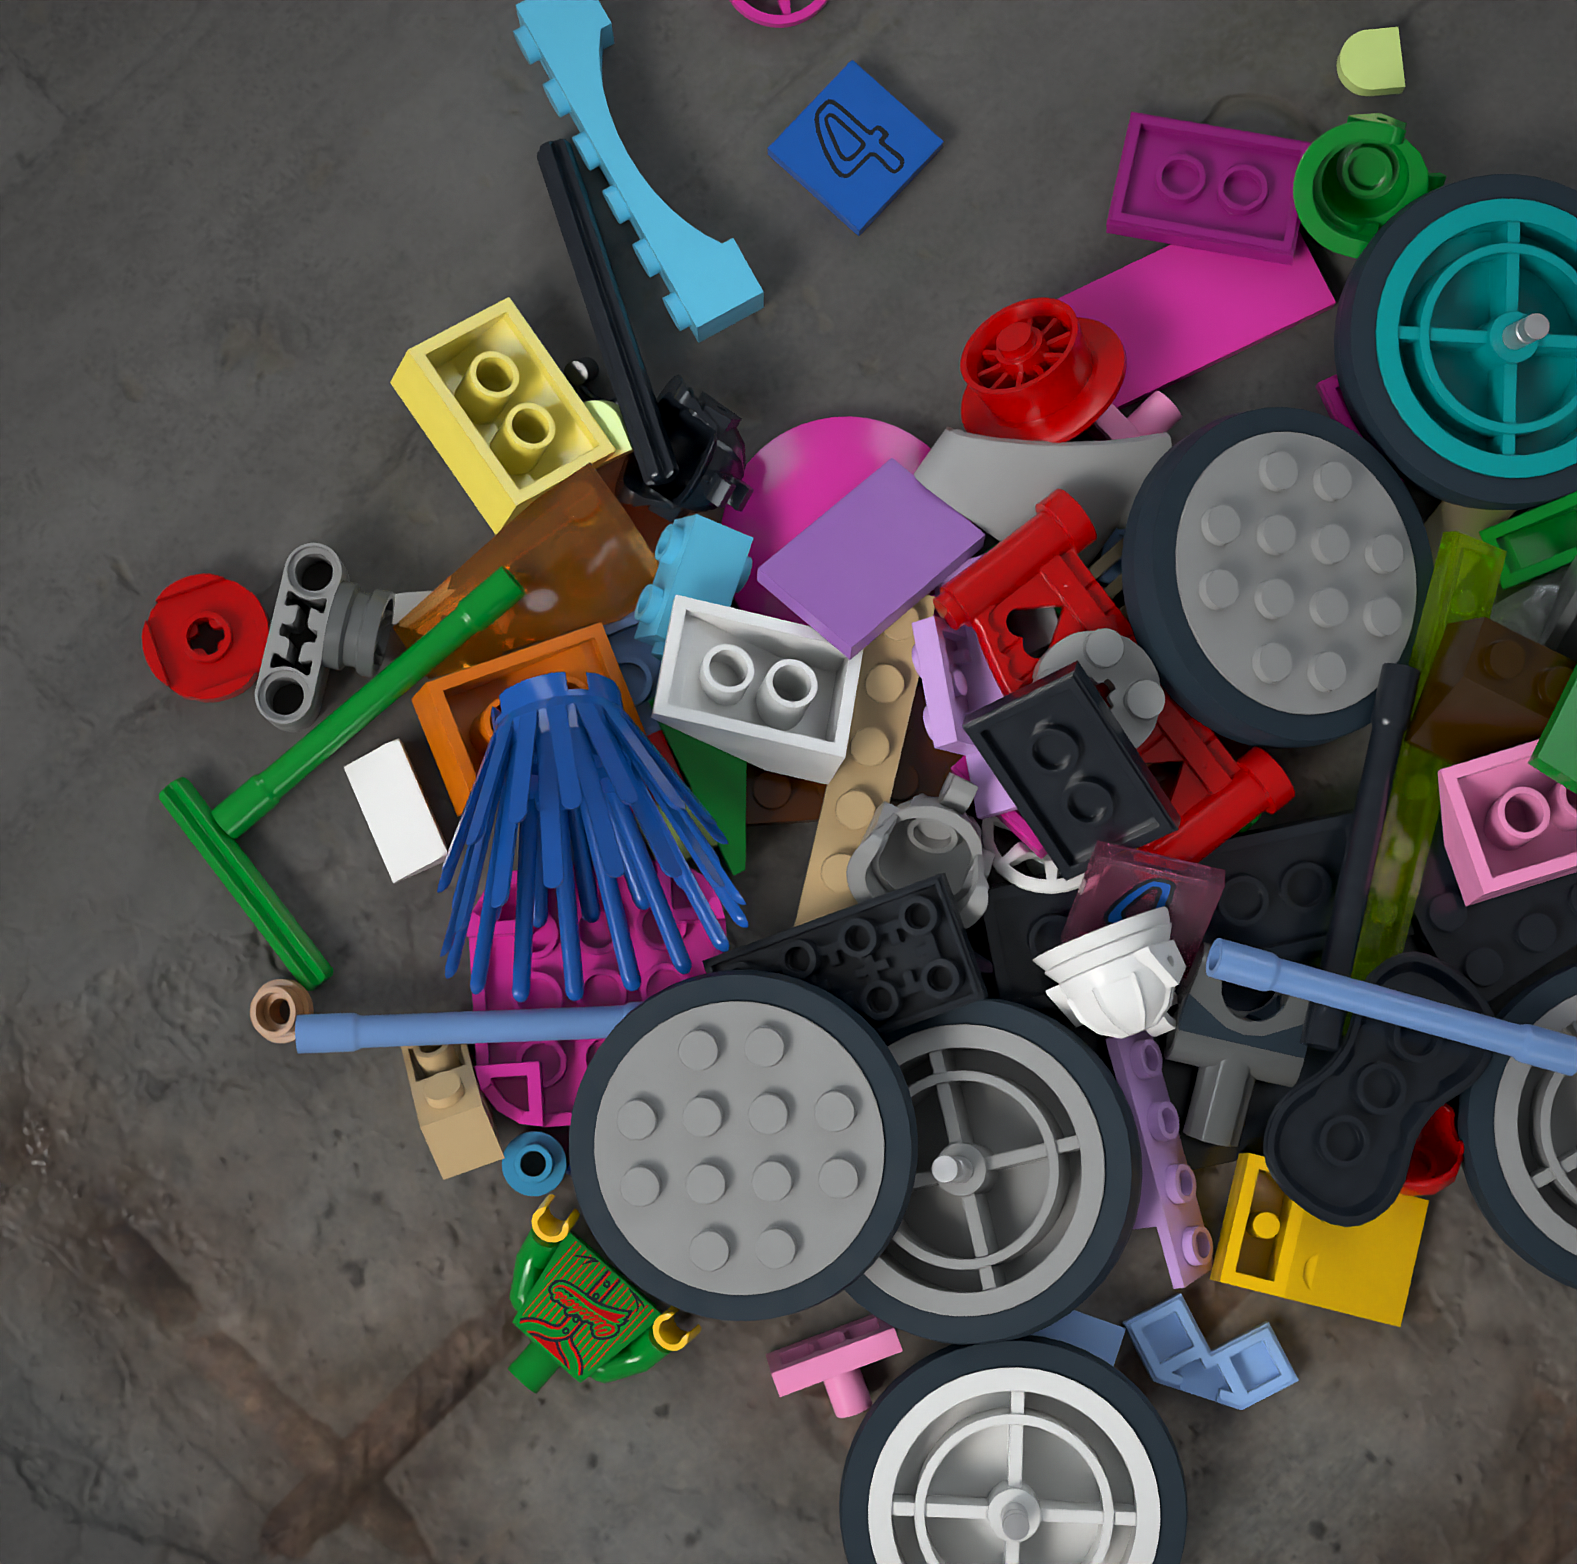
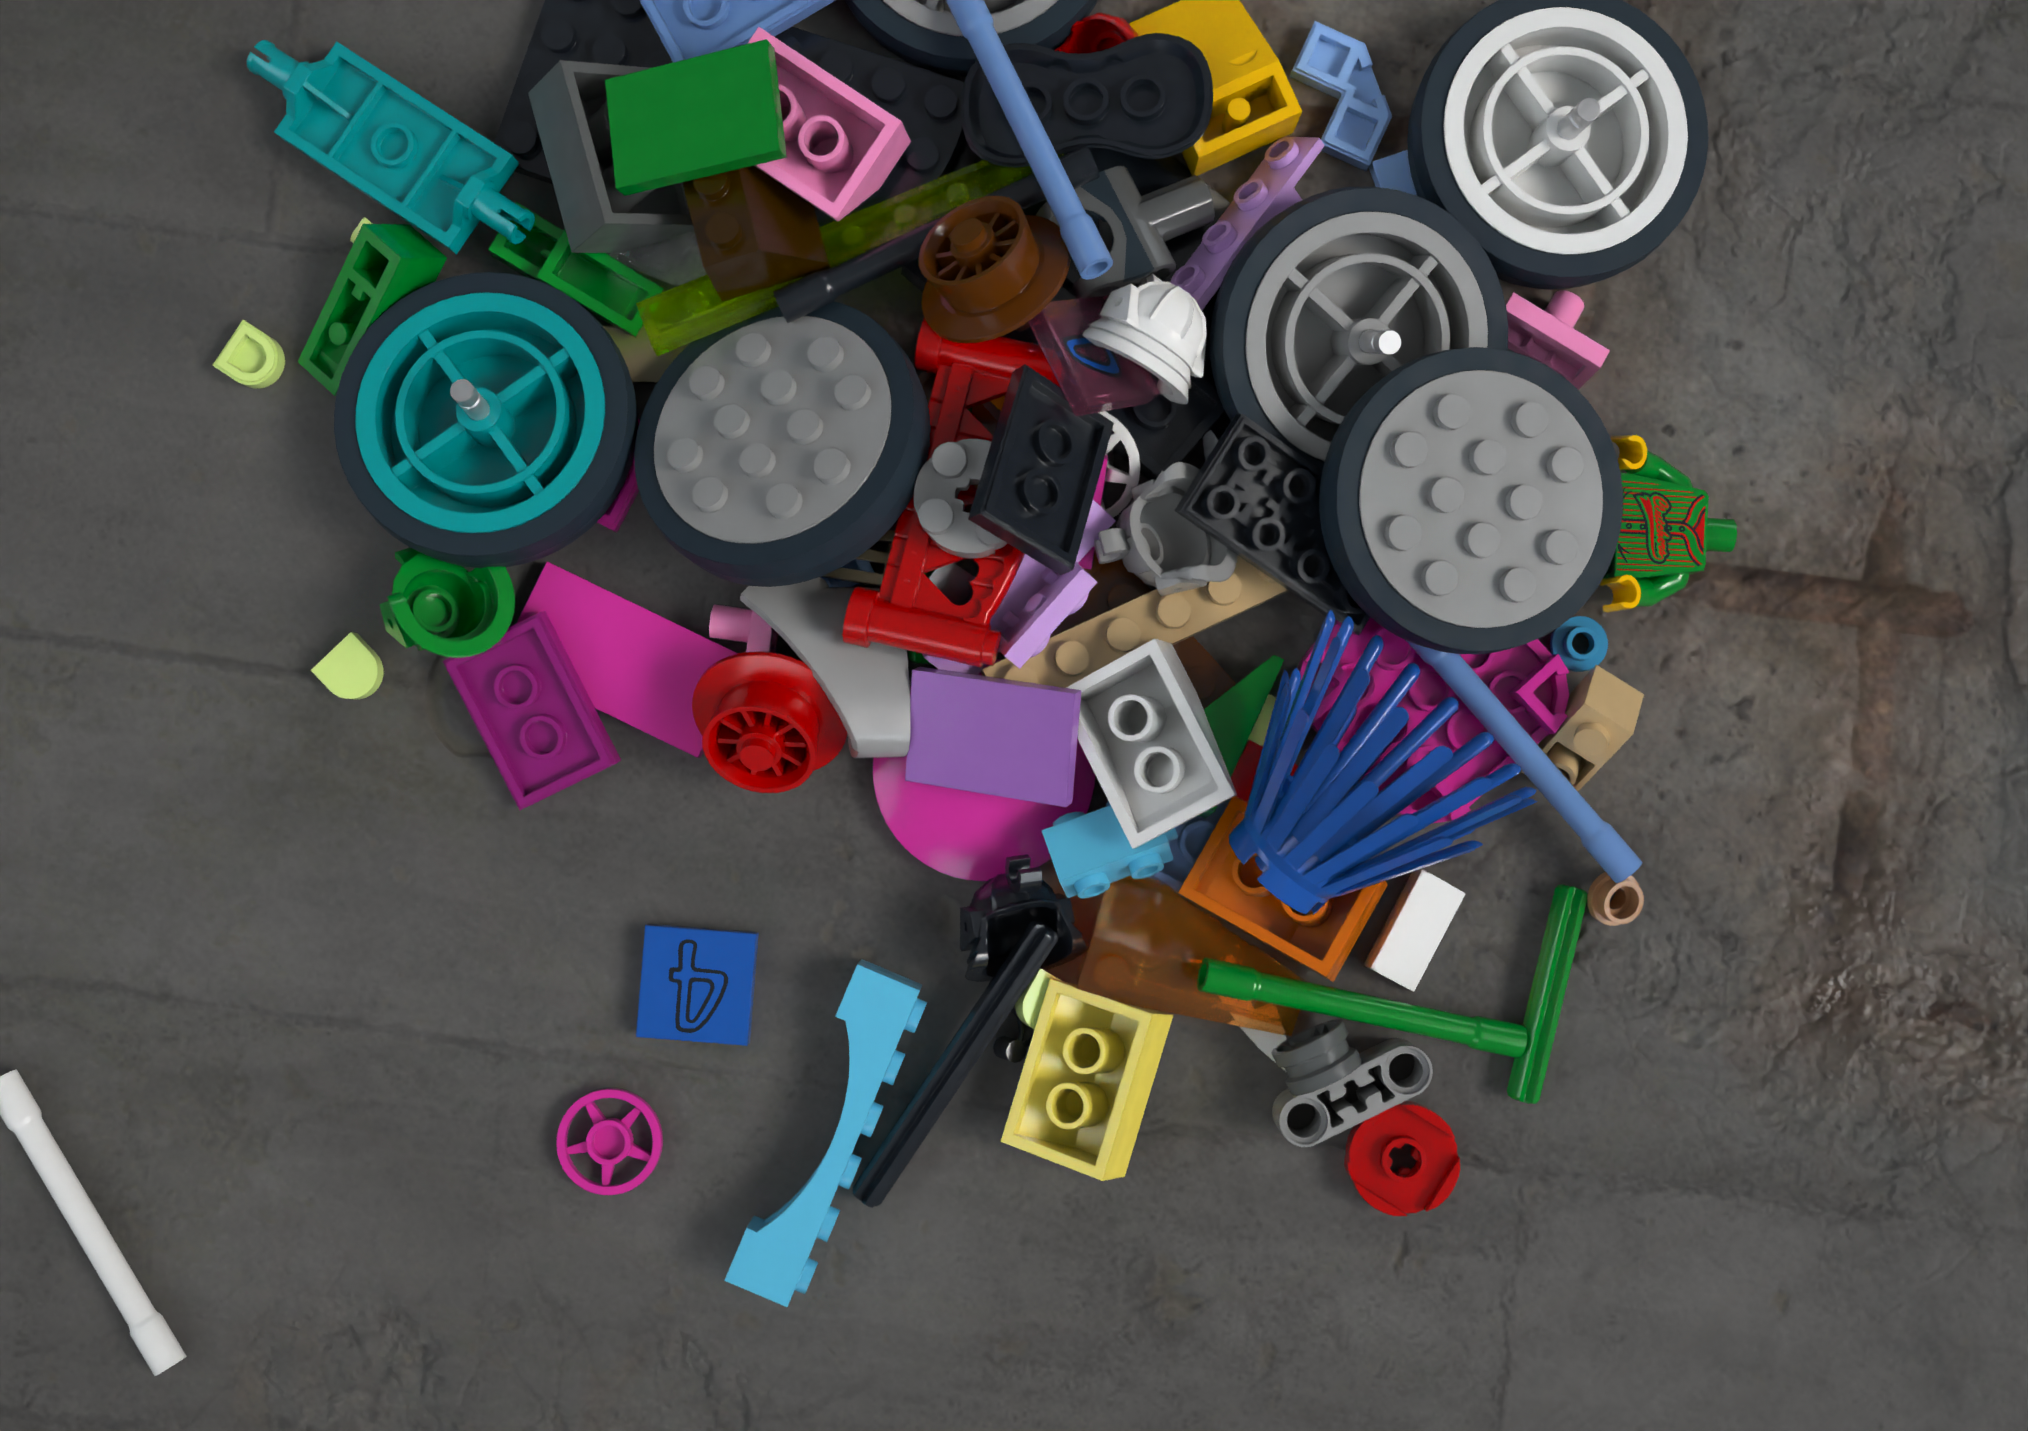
camera: 120 degrees left, 5 degrees up
(1288, 869) = (990, 269): none -> reddish brown piece

